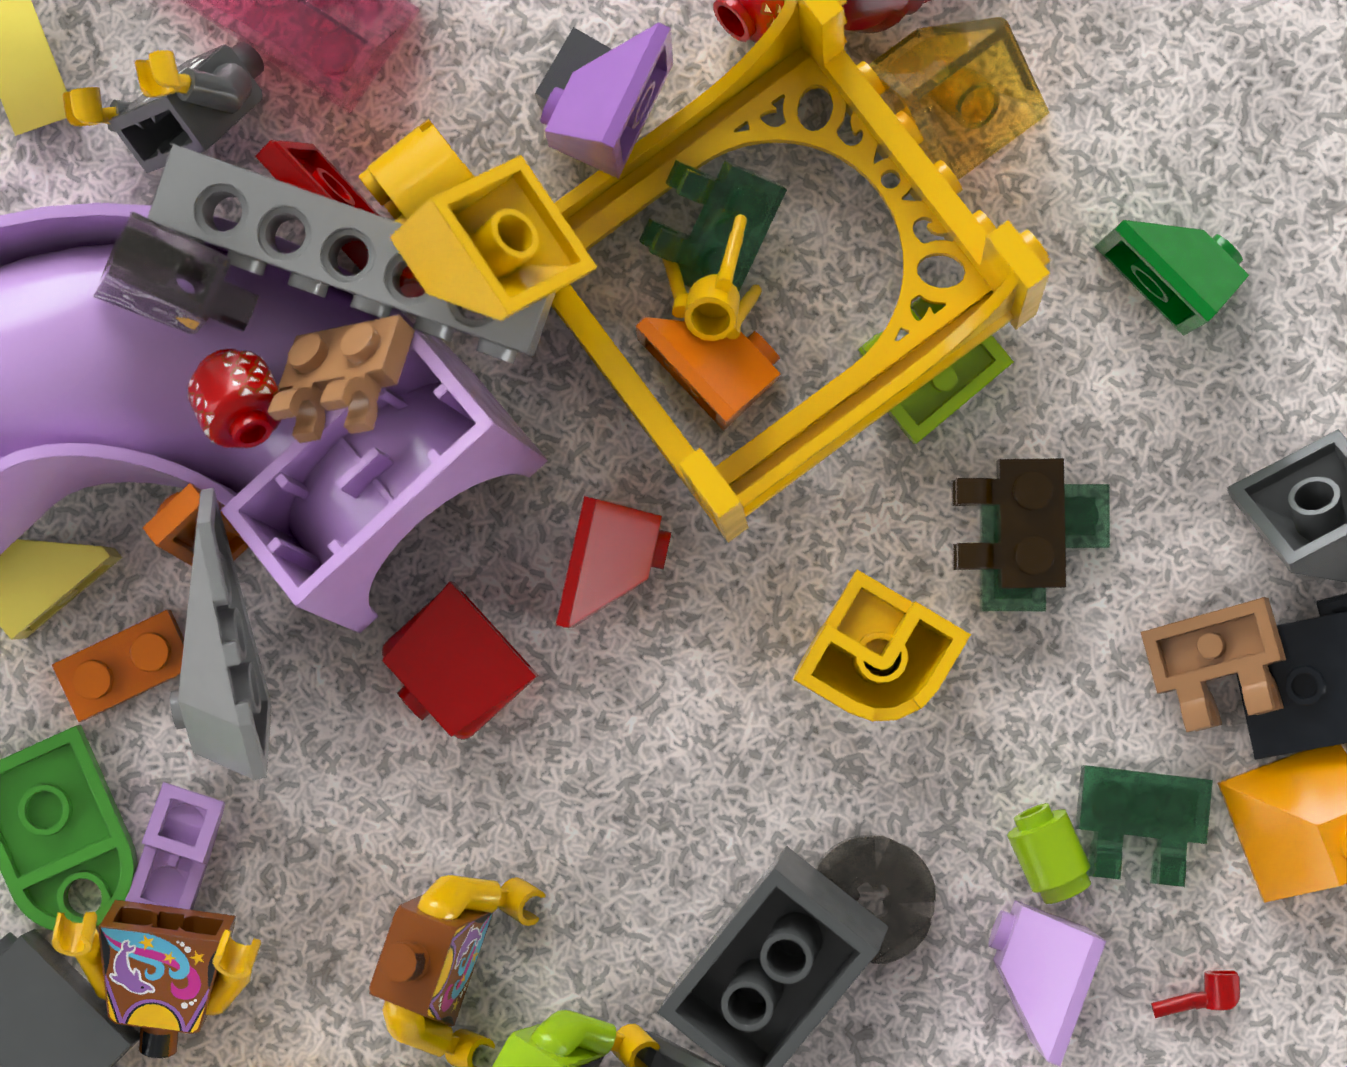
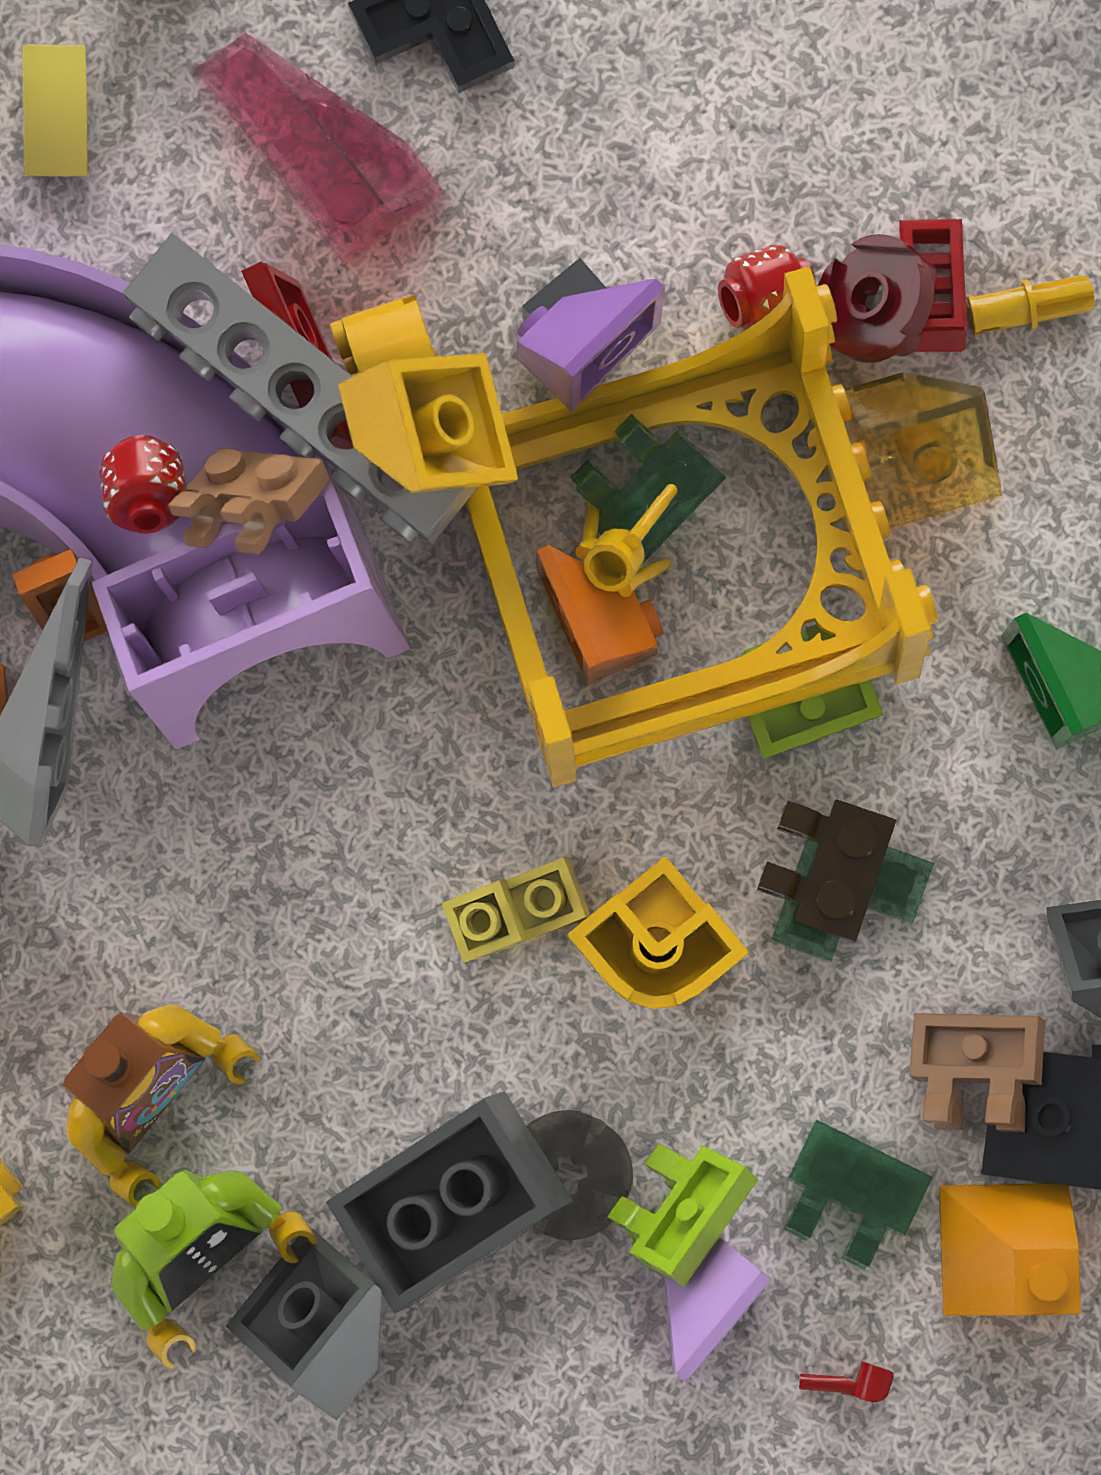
camera: 20 degrees right, 5 degrees down
(145, 271) = (105, 339): clear smoke torso -> none
(178, 104) = (189, 199): dark grey torso -> none
(455, 664) = (255, 811): red torso -> none
(609, 558) = (434, 762): red slope -> none
(733, 668) = (515, 910): none -> light yellow slope
(1005, 899) = (691, 1216): none -> lime plate
(1050, 853) = (767, 1202): lime brick -> none

